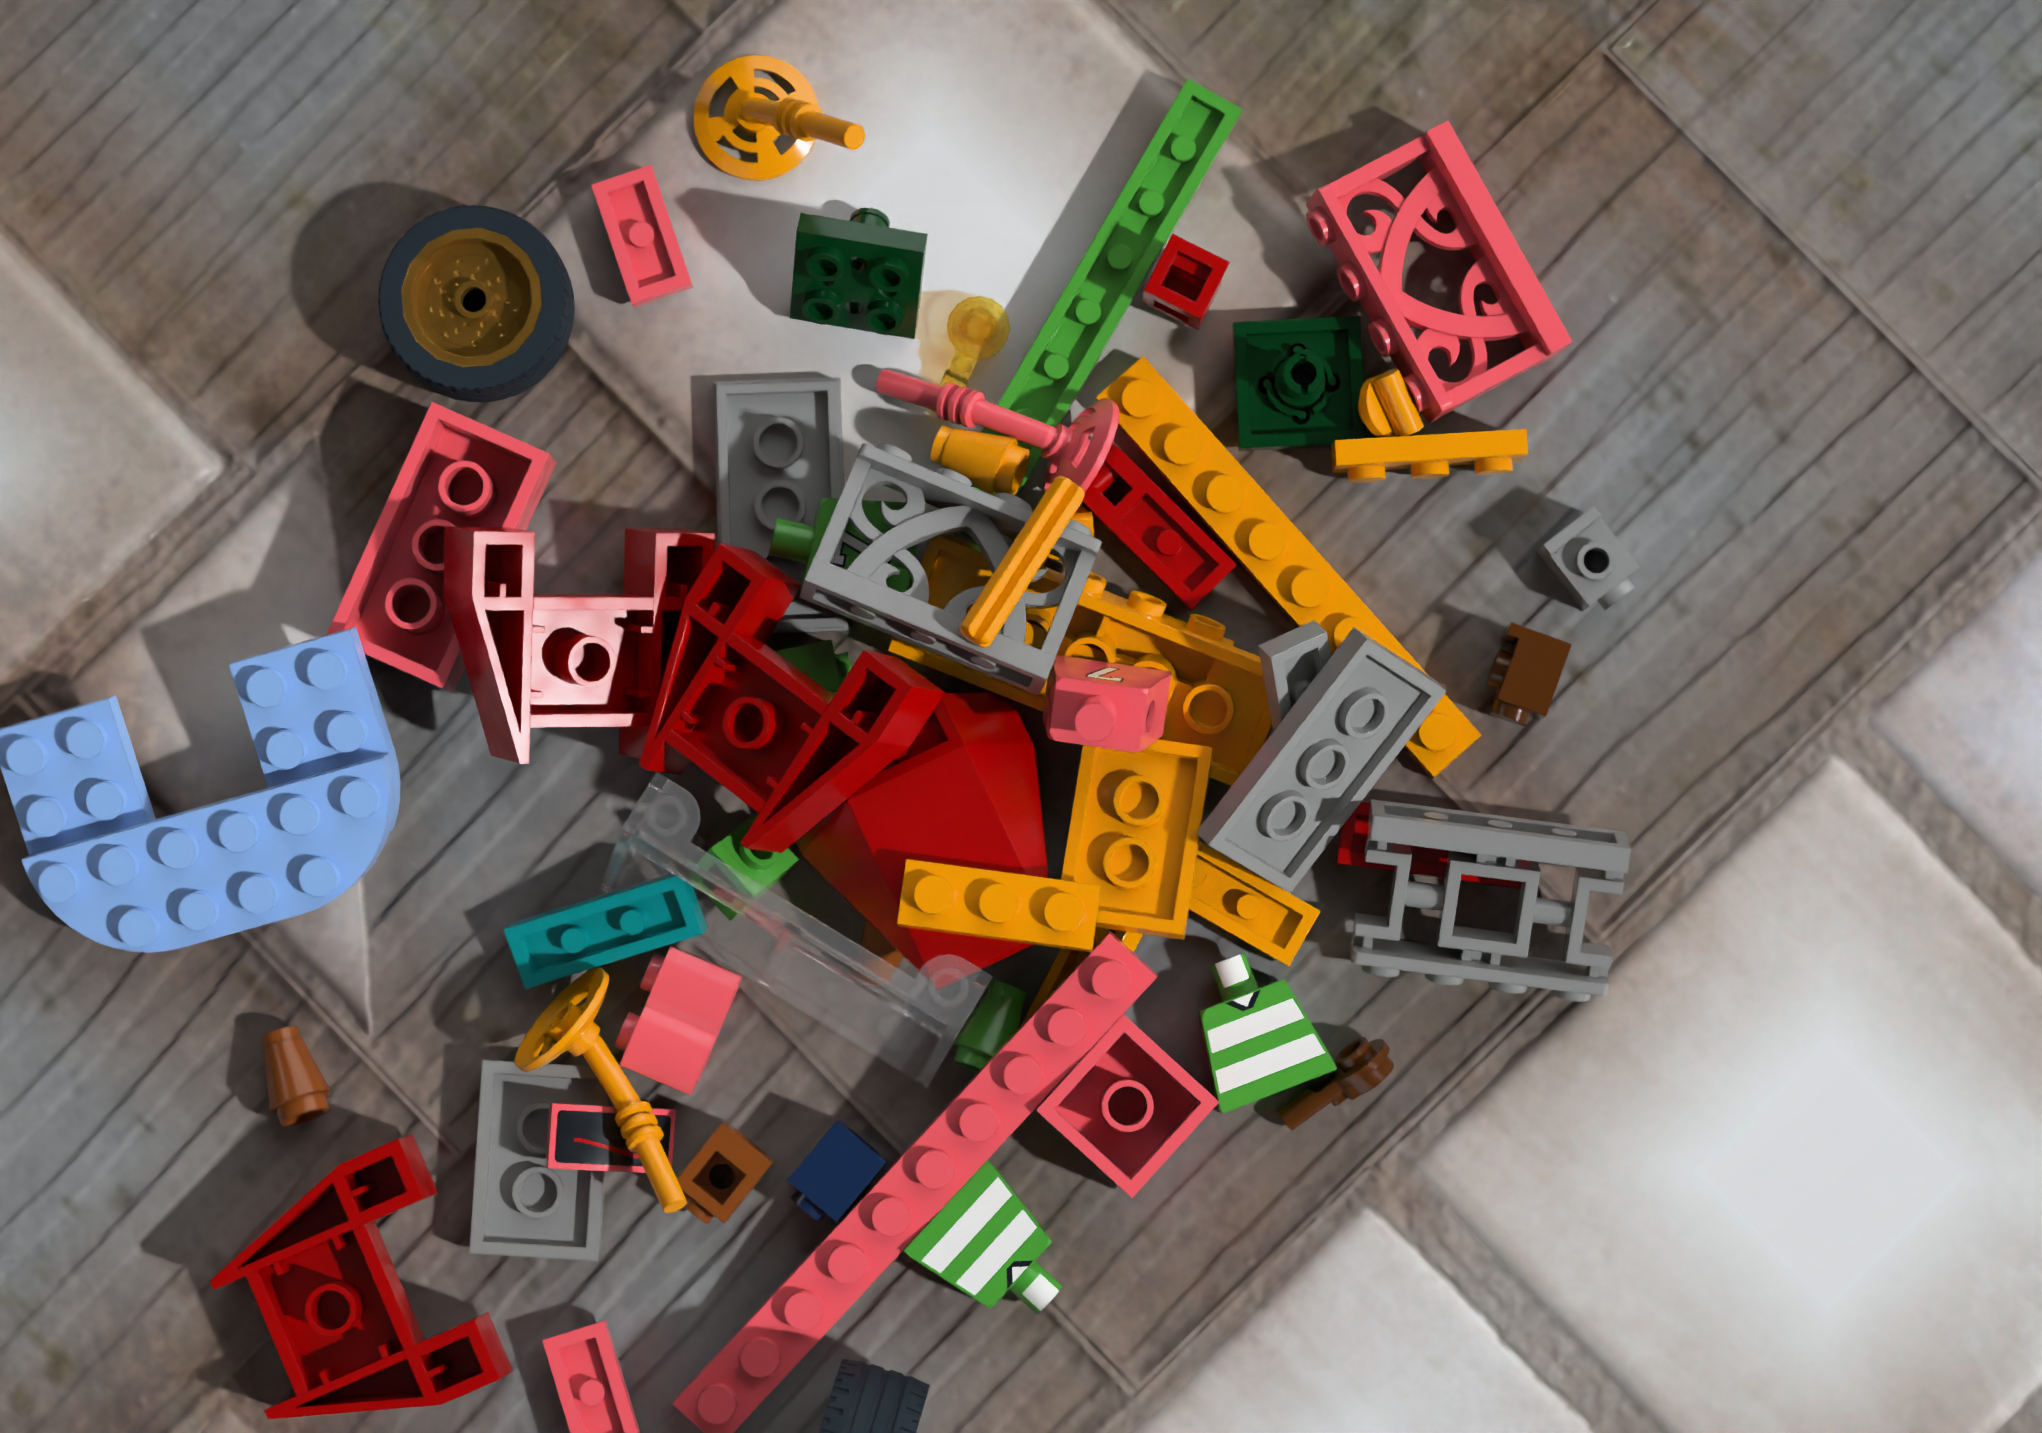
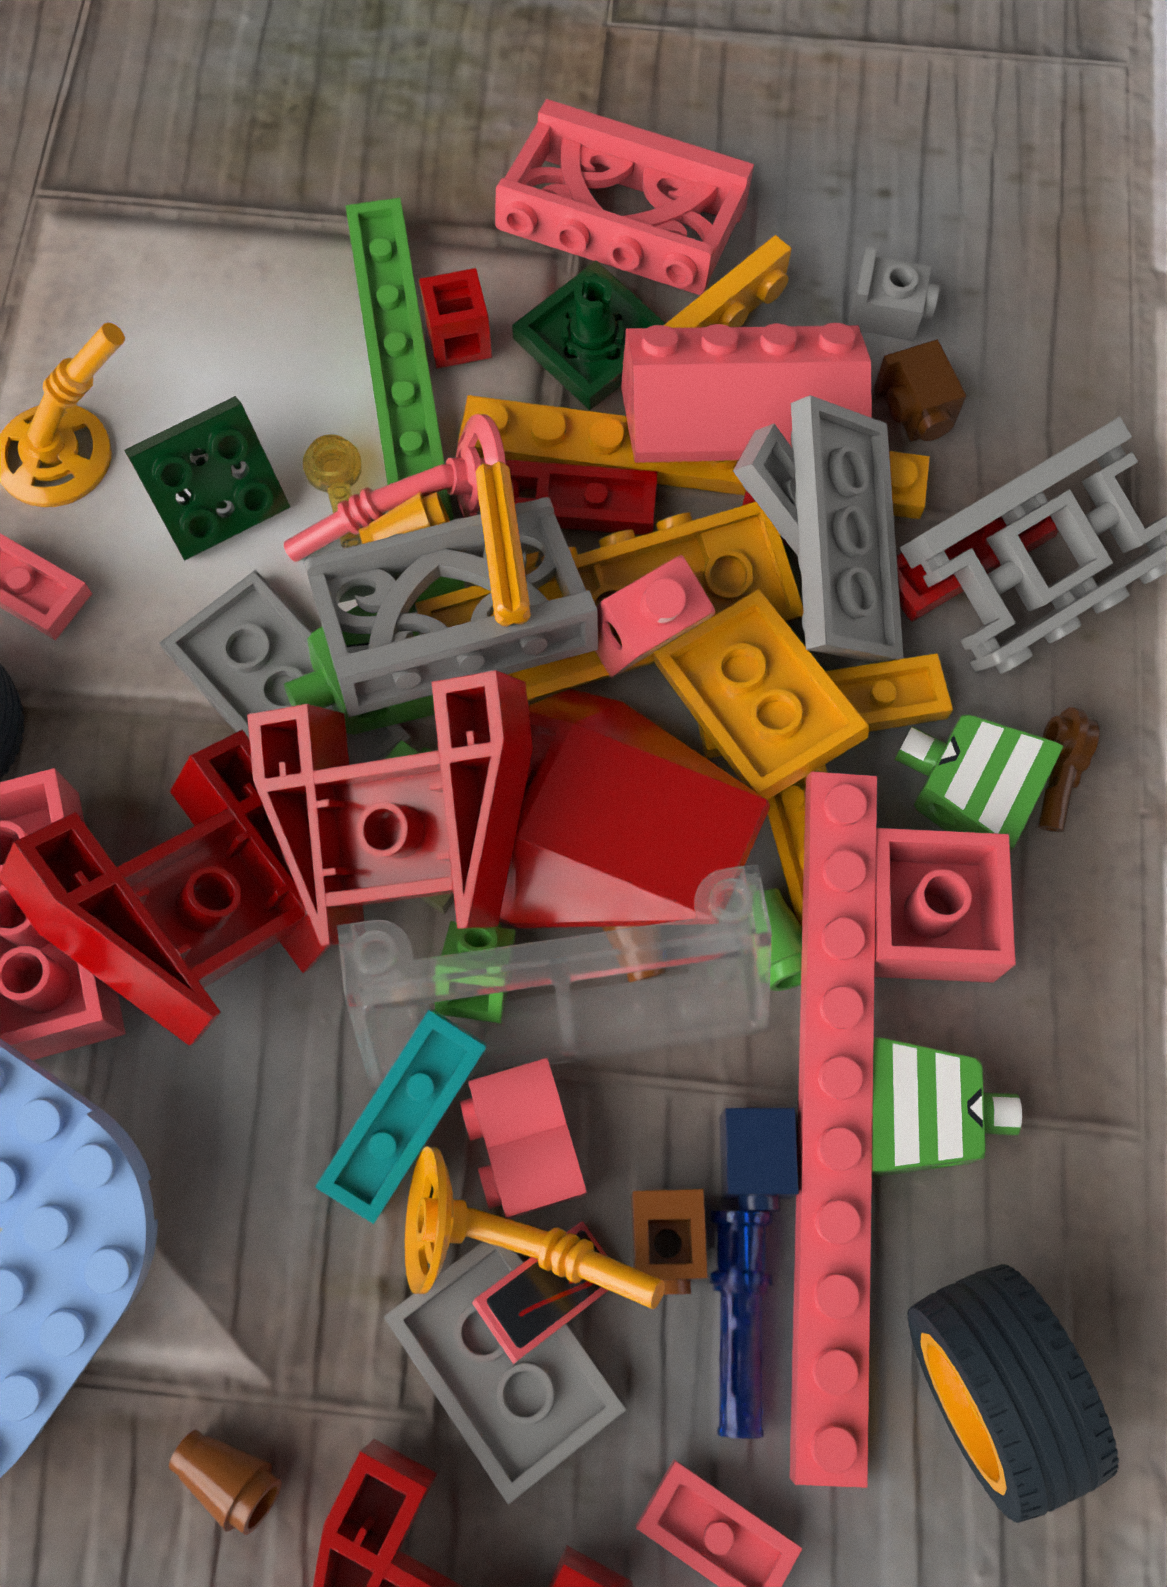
camera: 40 degrees left, 15 degrees down
(749, 1246) = (741, 1281): none -> clear blue pin
(999, 905) = (710, 813): light orange plate -> none
(1362, 557) = (715, 385): none -> coral slope
(1387, 406) = (668, 289): light orange plate -> none

